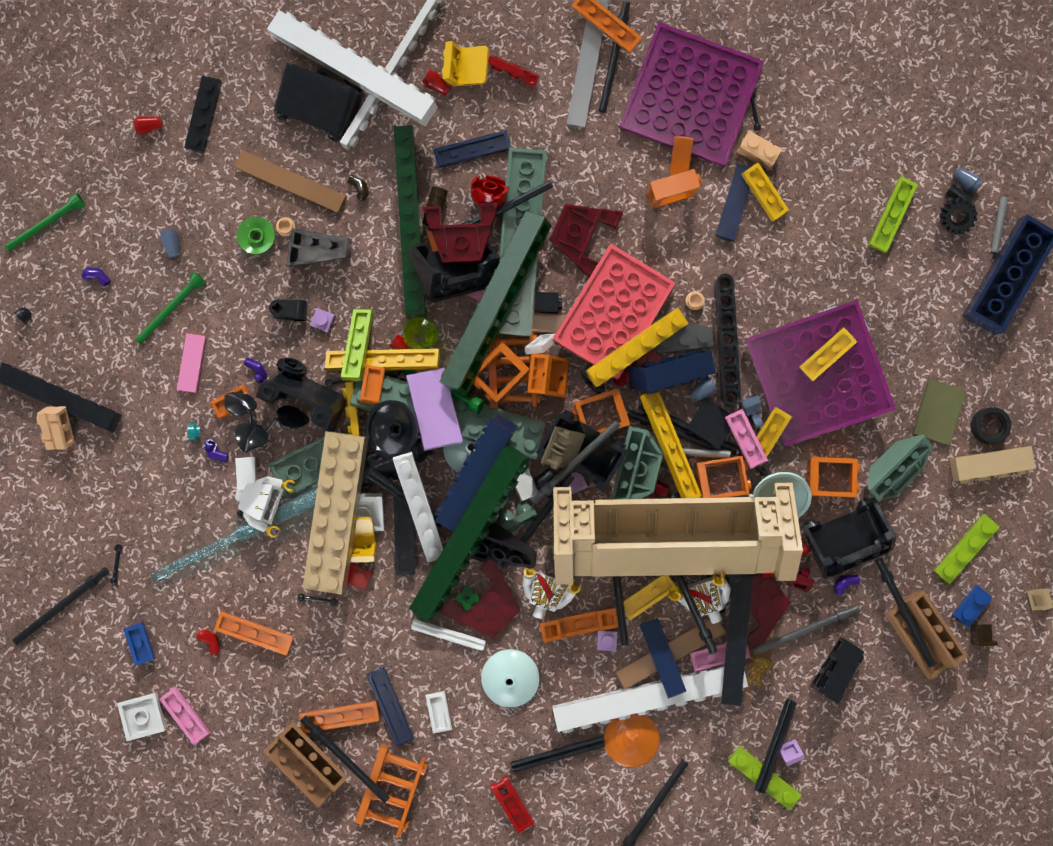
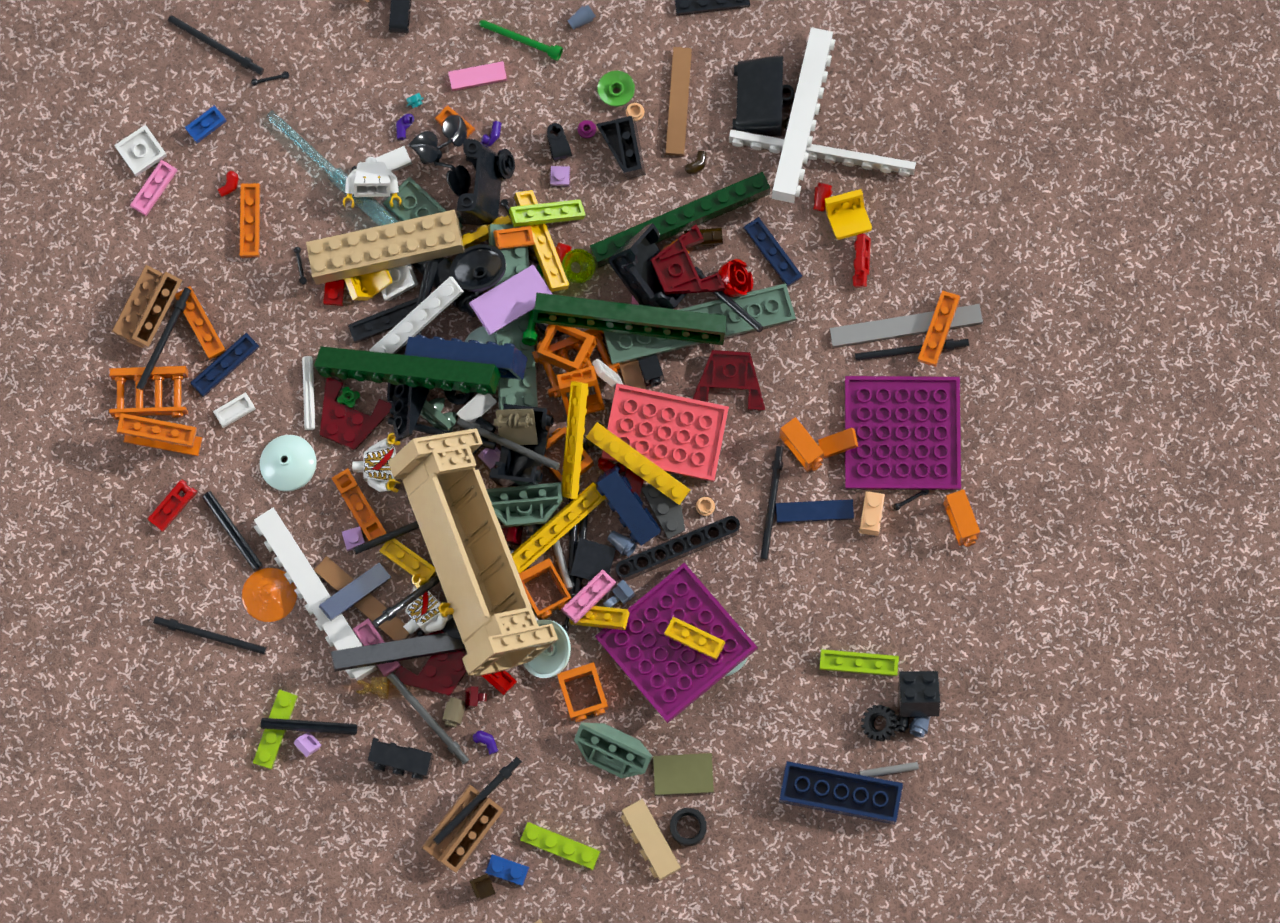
camera: 75 degrees right, 10 degrees down
(291, 278) = (587, 134): none -> magenta plate
(441, 797) = (159, 434): none -> orange fence
(596, 397) = (574, 439): none -> yellow plate
(680, 220) = (777, 466): none -> black bar
(765, 192) = (833, 533): yellow plate -> none
(796, 69) = (962, 518): none -> orange window
(809, 604) = (454, 712): none -> dark tan brick
(850, 539) = (526, 727): black windscreen -> none
(945, 169) = (919, 693): none -> black brick

